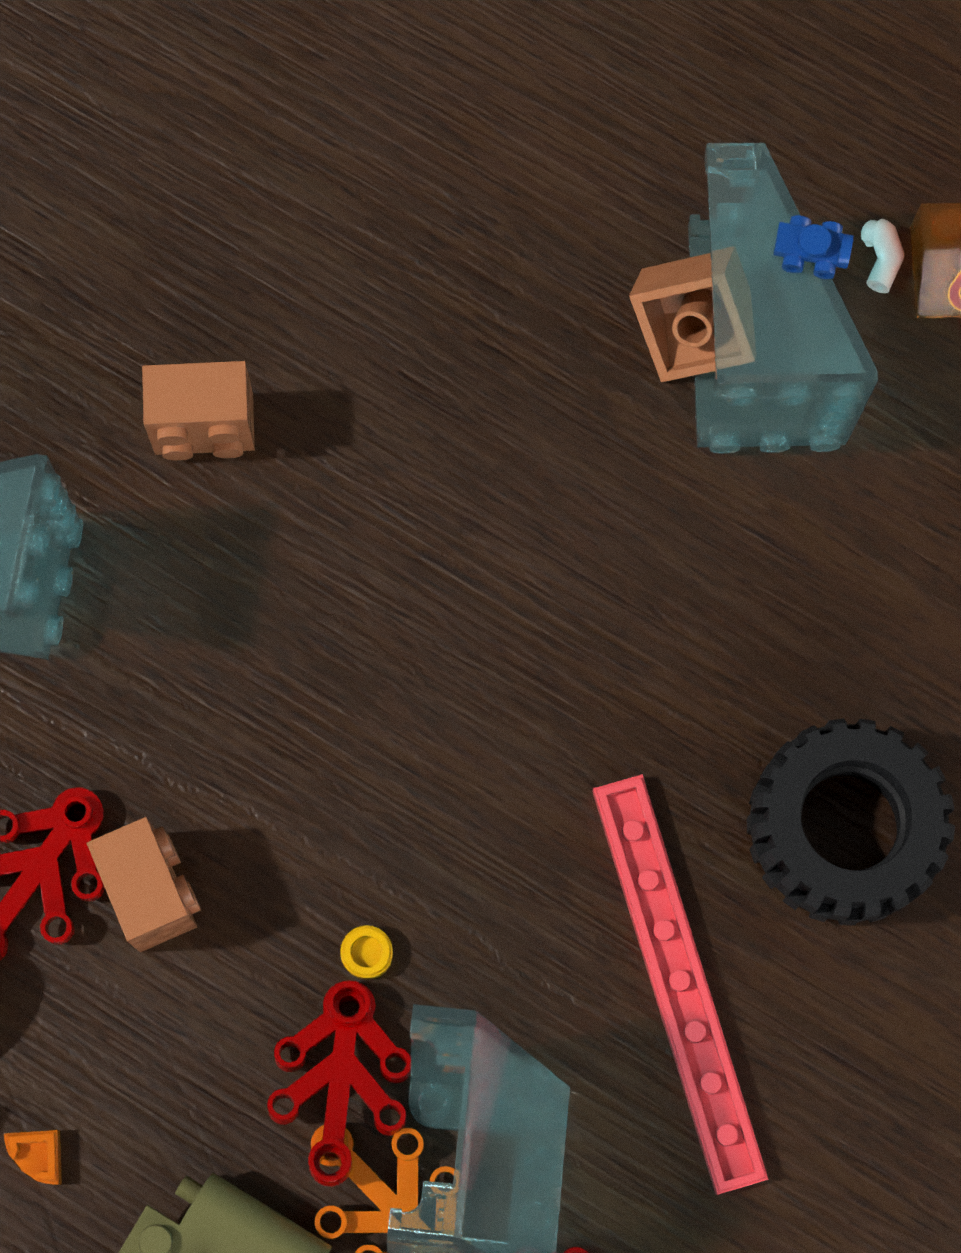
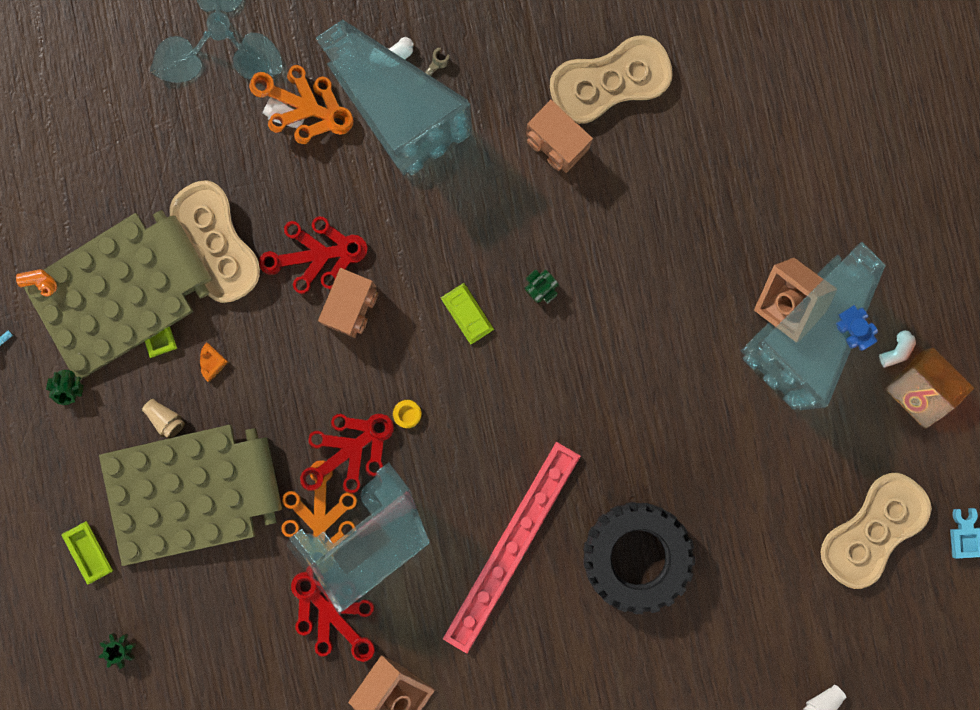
camera: 50 degrees right, 10 degrees up
(205, 249) = (630, 72): none -> tan plate
(311, 746) = (467, 313): none -> lime tile
(370, 614) = (541, 286): none -> dark green gear

